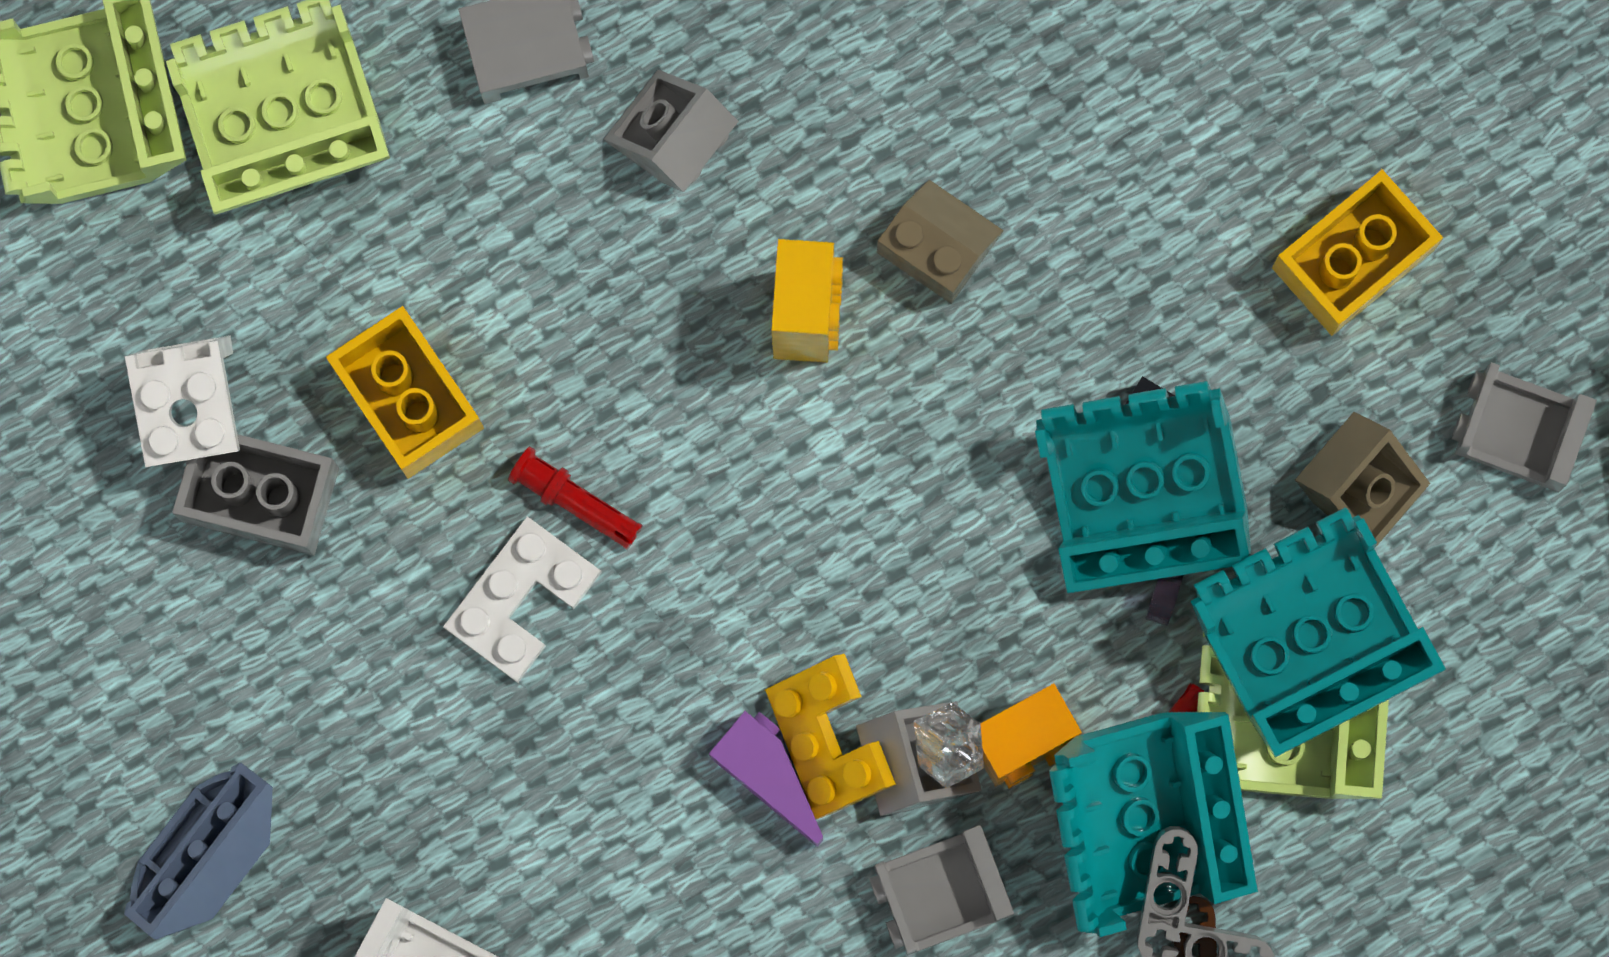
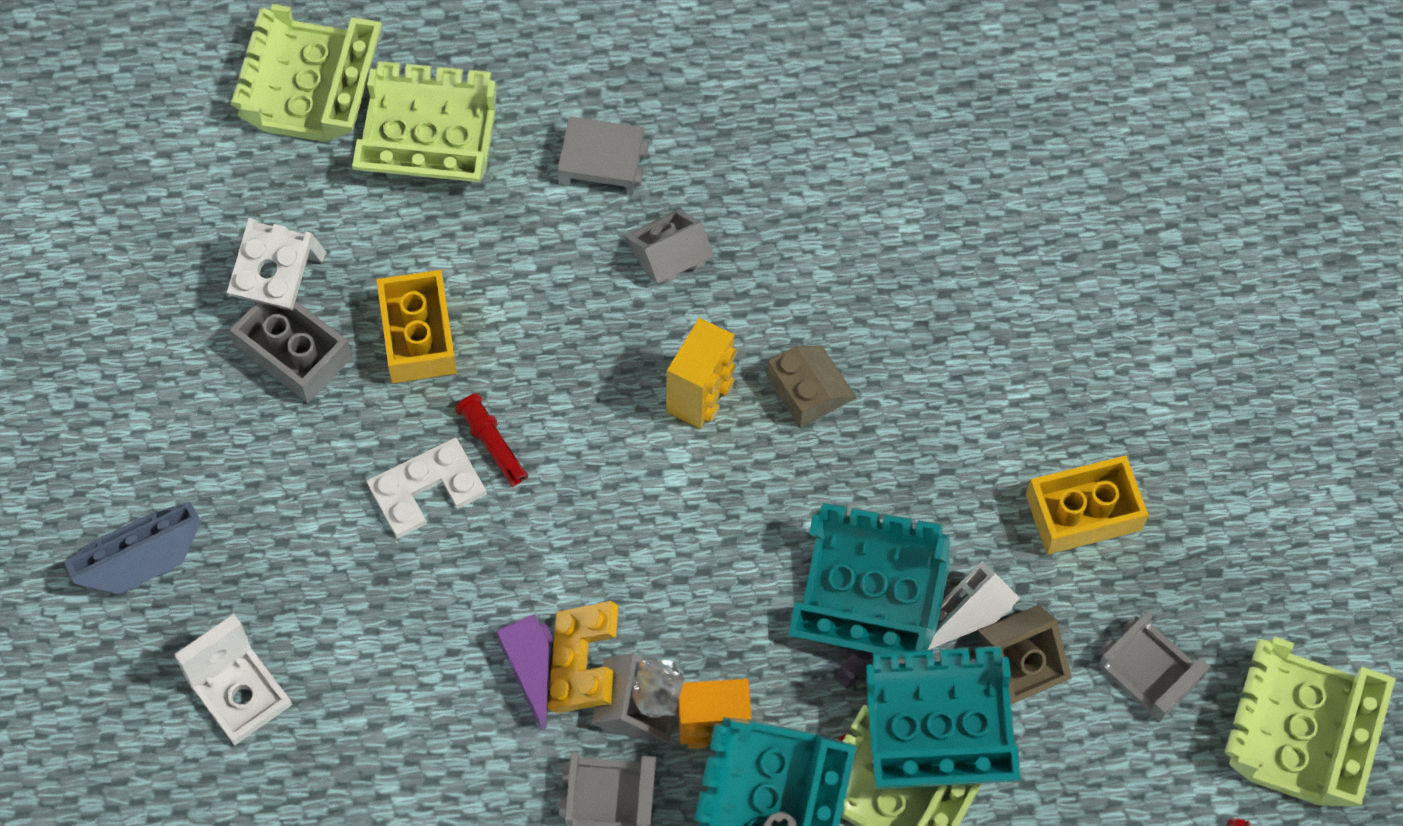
camera: 20 degrees right, 15 degrees down
(1276, 448) = (973, 605): none -> white slope

